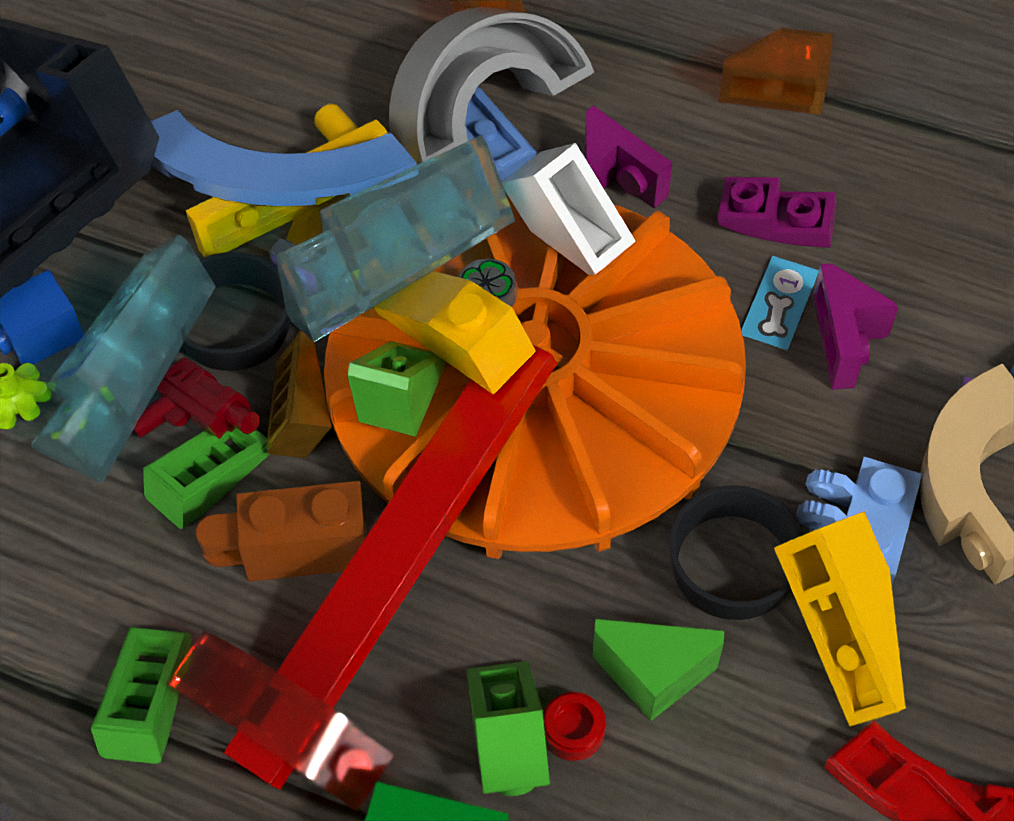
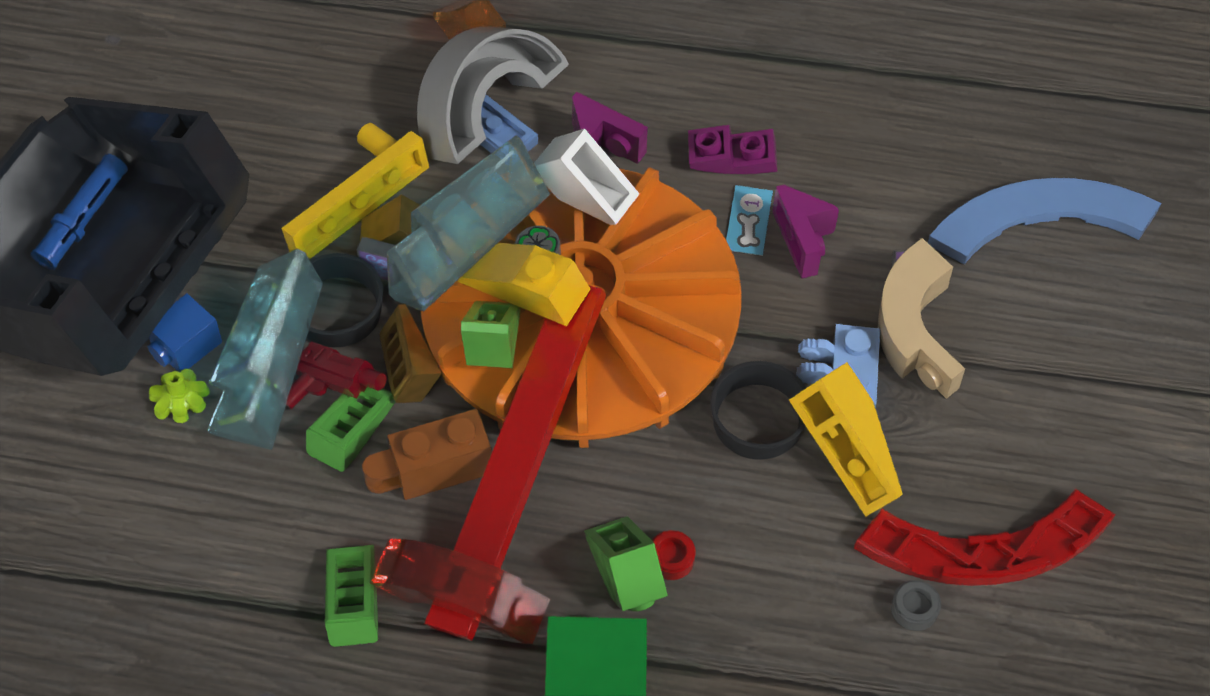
camera: 15 degrees left, 0 degrees up
(272, 177) = (347, 190): medium blue tile -> none
(655, 661) = (719, 497): bright green slope -> none
(780, 72) = (711, 40): clear orange slope -> none

